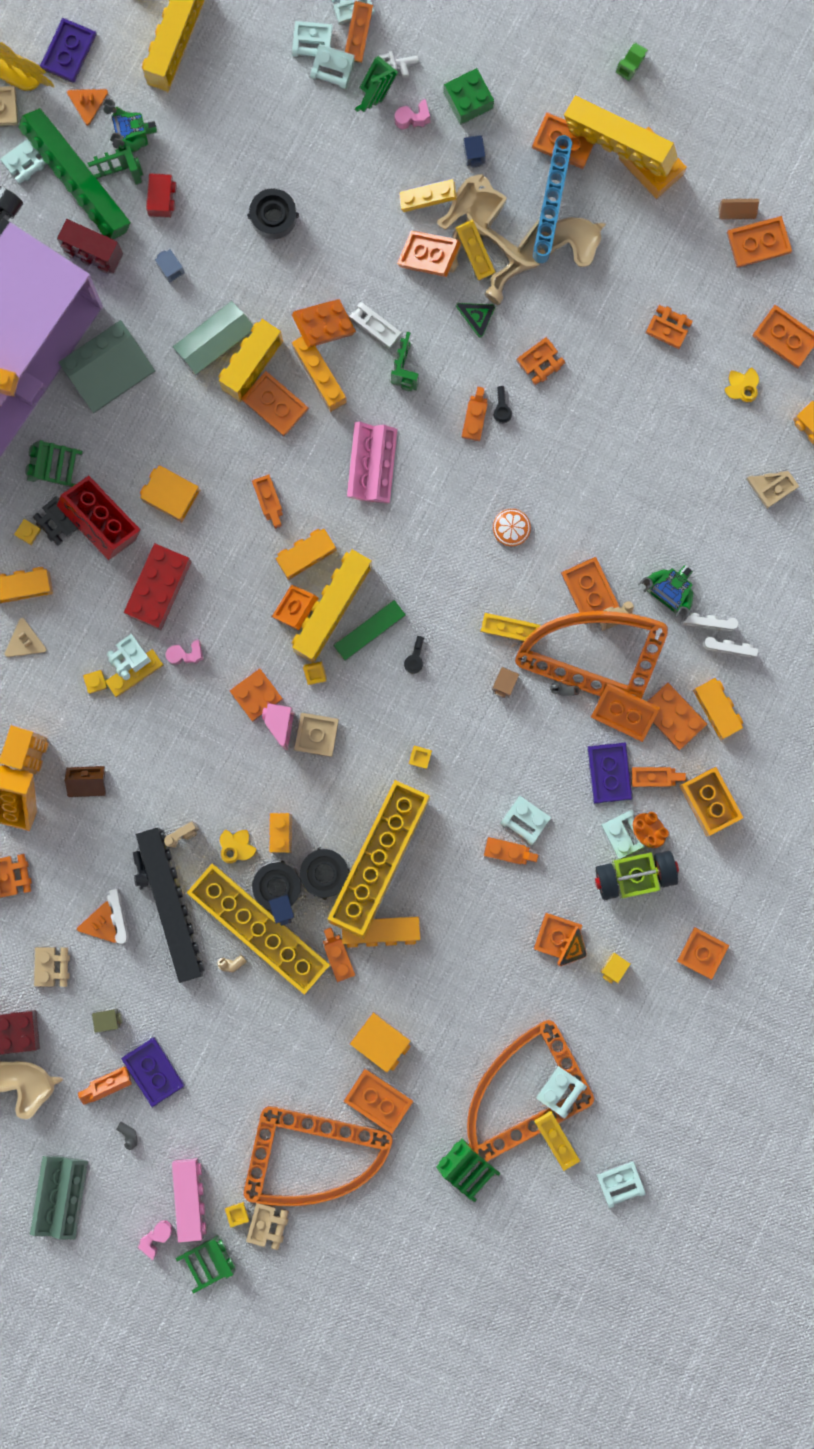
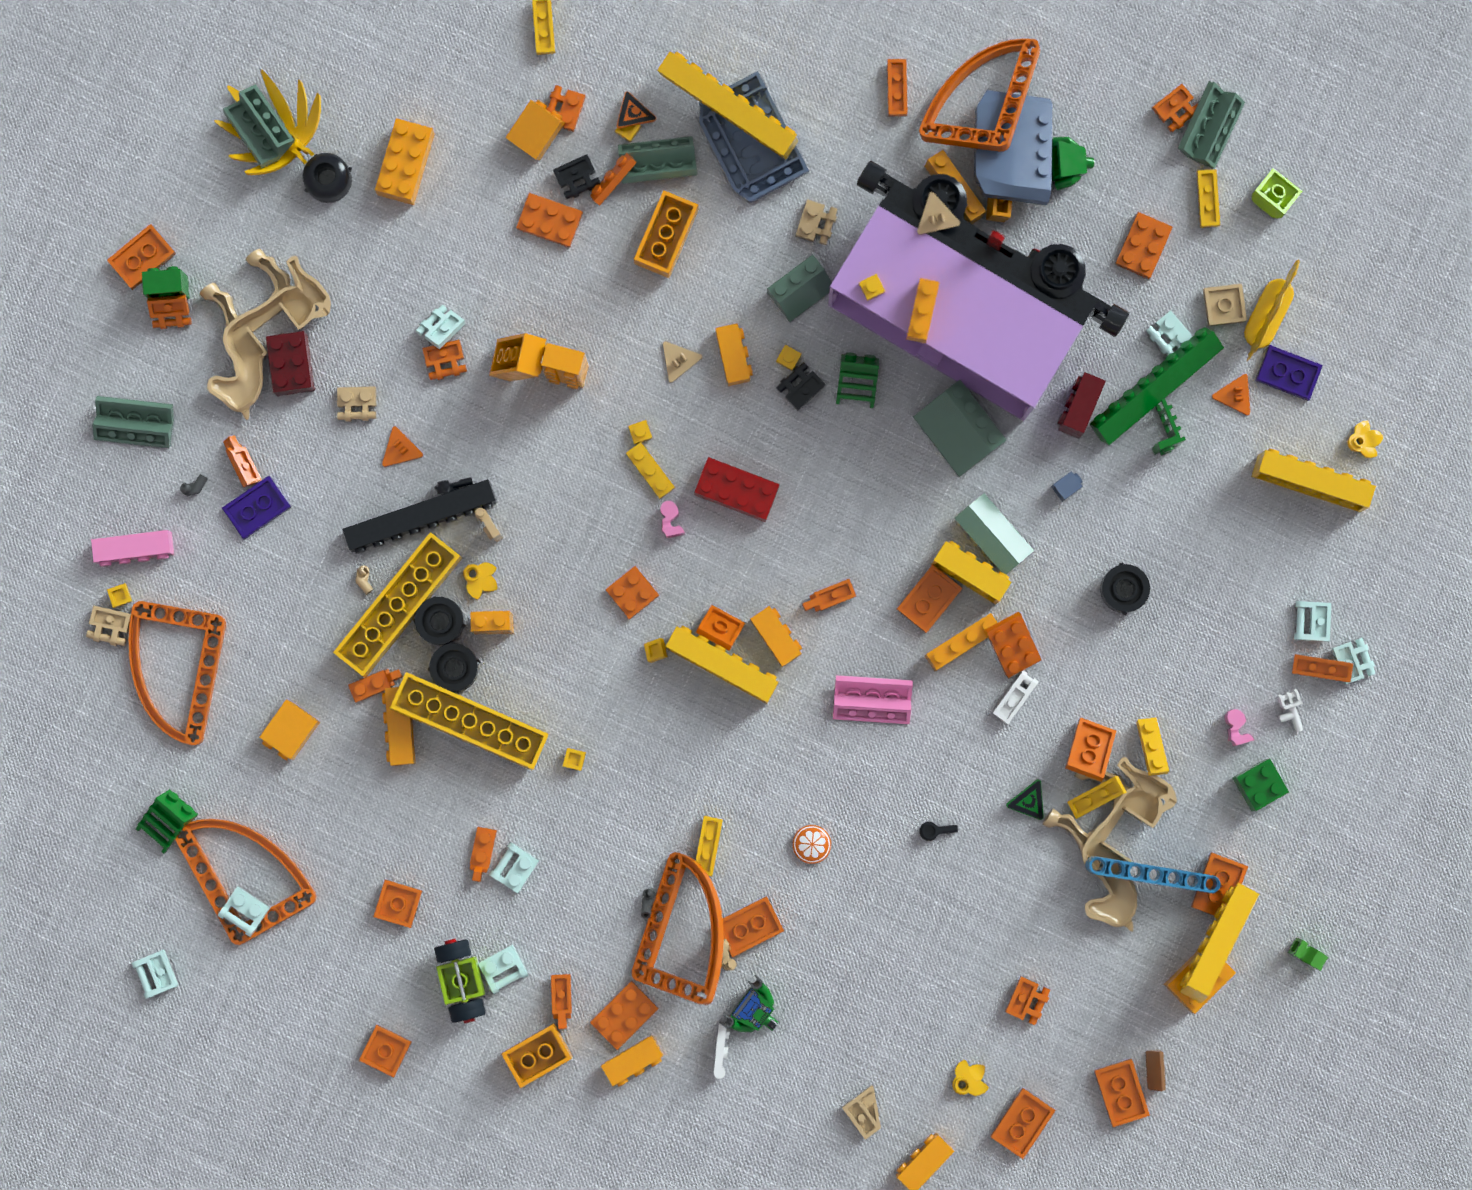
camera: 85 degrees right, 0 degrees up
(85, 781) = (540, 427): reddish brown panel -> none
(98, 517) = (803, 427): red brick -> none
(107, 1020) = (305, 460): olive brick -> none
(118, 917) = (407, 466): white plate -> none
(128, 128) = (1206, 438): torso -> none
(134, 656) = (668, 468): light aqua plate -> none
(160, 195) = (1140, 473): red brick -> none
(160, 1234) = (99, 521): bright pink leg -> none
(169, 493) = (832, 497): light orange brick -> none
(217, 1251) = (78, 580): green plate -> none
(279, 721) = (600, 616): bright pink slope -> none
(282, 910) = (414, 627): dark blue brick -> none
(316, 734) = (593, 654): tan plate -> none
(334, 60) = (1291, 645): light aqua plate -> none
(369, 630) = (701, 703): green tile -> none
(376, 83) = (1268, 689): green plate -> none
(378, 1101) = (232, 730): orange plate -> none
(406, 379) = (957, 731): green plate -> none
(413, 663) = (669, 749): black plate -> none
(474, 151) = (1202, 793): dark blue brick -> none
(475, 416) = (925, 803): orange hinge -> none
(505, 682) = (651, 842): medium nougat brick -> none
(538, 355) = (990, 864): orange plate -> none
(557, 1141) = (196, 908): yellow plate -> none
(574, 949) = (385, 920): piece -> none
(609, 773) = (564, 951): dark purple tile -> none
(614, 968) = (367, 962): yellow brick -> none
(625, 712) = (625, 965): orange plate -> none
(649, 830) = (507, 993): orange dish -> none
(728, 647) = (696, 1070): white plate -> none

